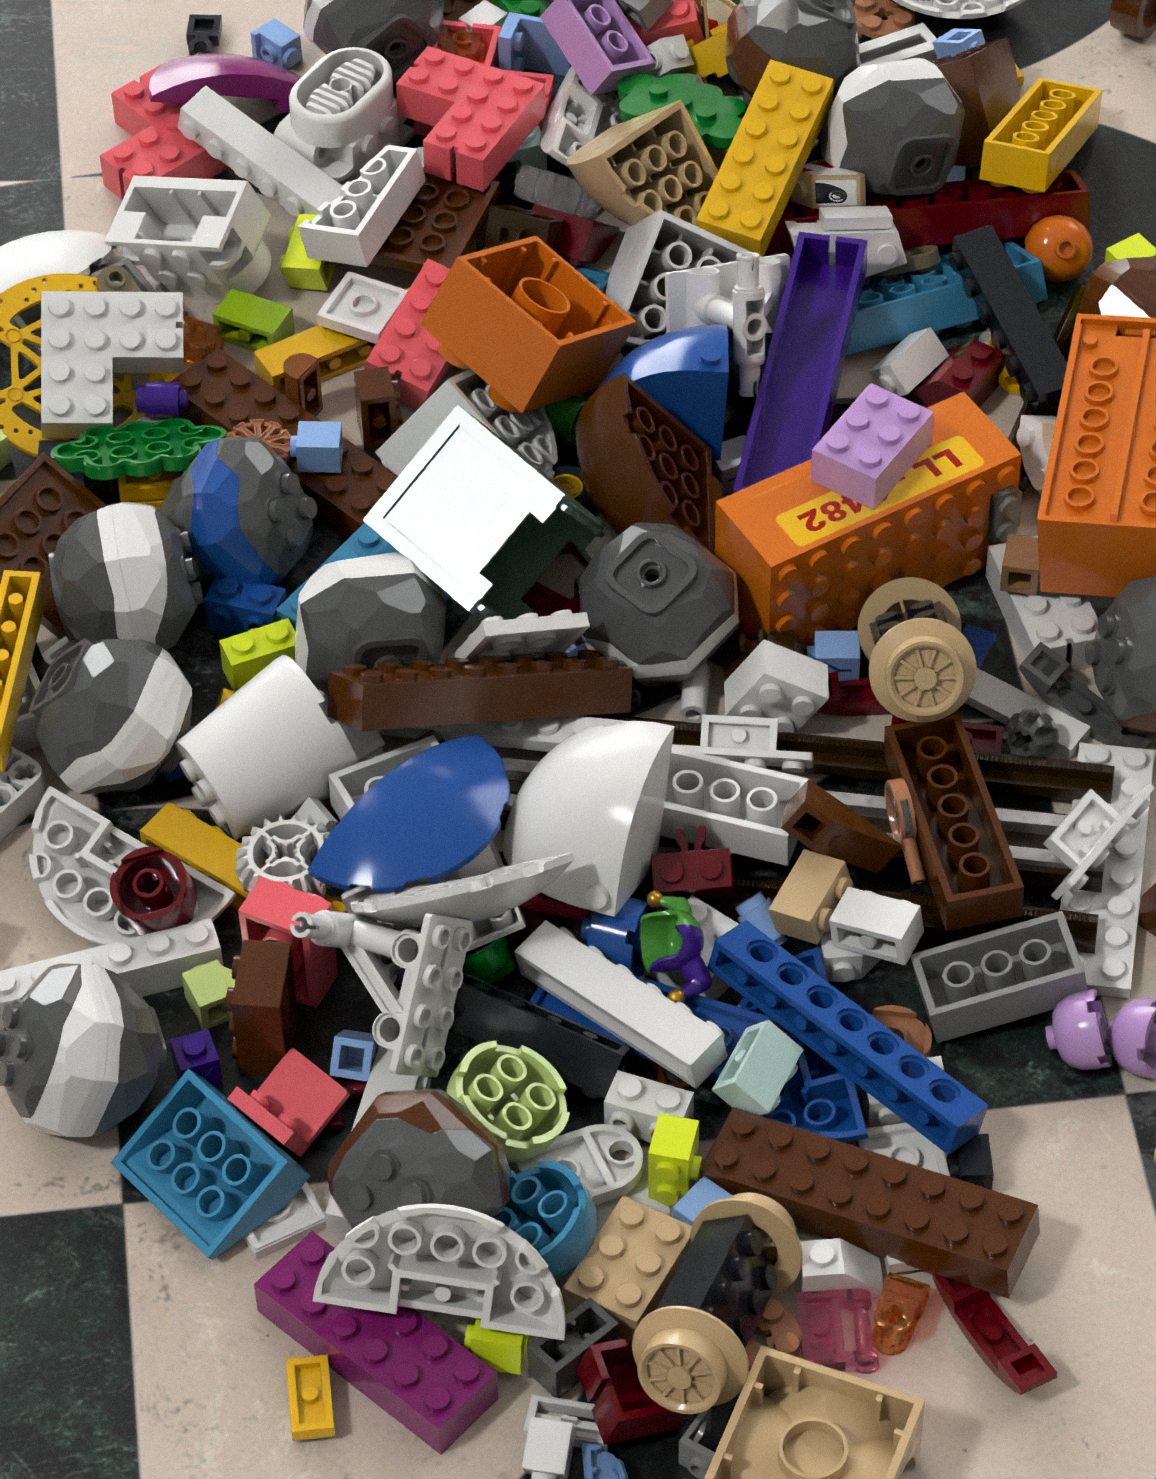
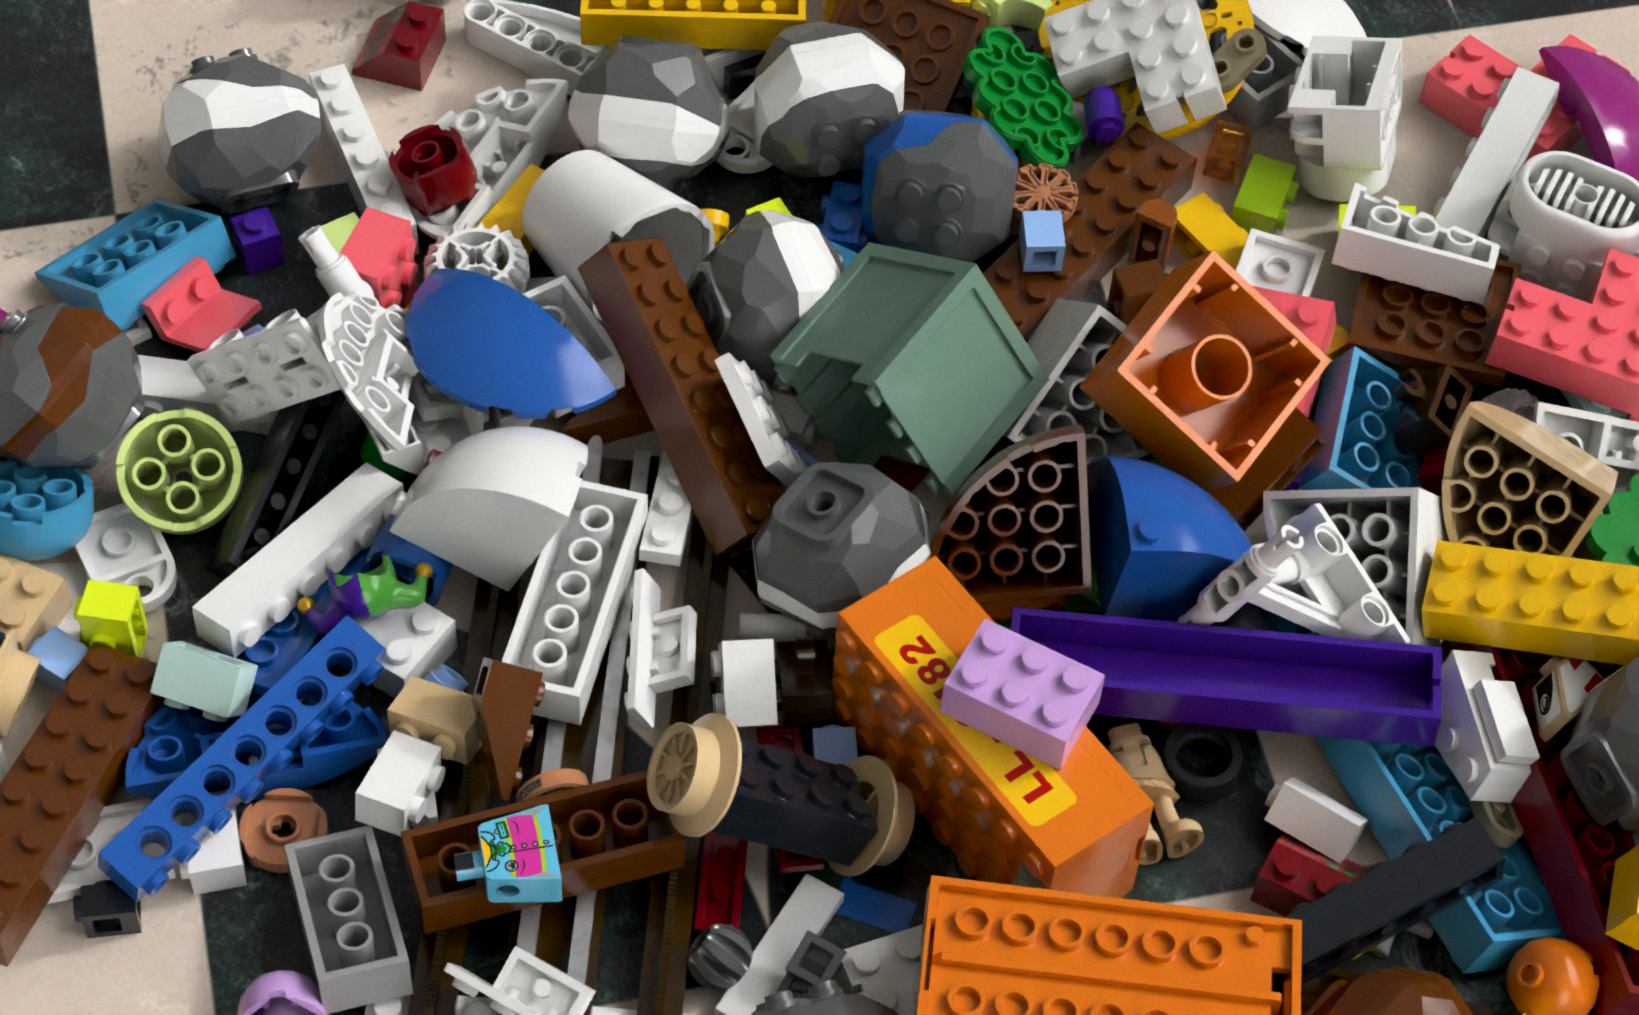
camera: 80 degrees right, 5 degrees up
(262, 1006) = (281, 267): reddish brown brick -> none
(637, 1101) = (184, 588): white brick -> none
(694, 872) = (475, 612): dark red brick -> none
(986, 809) = (515, 858): none -> torso

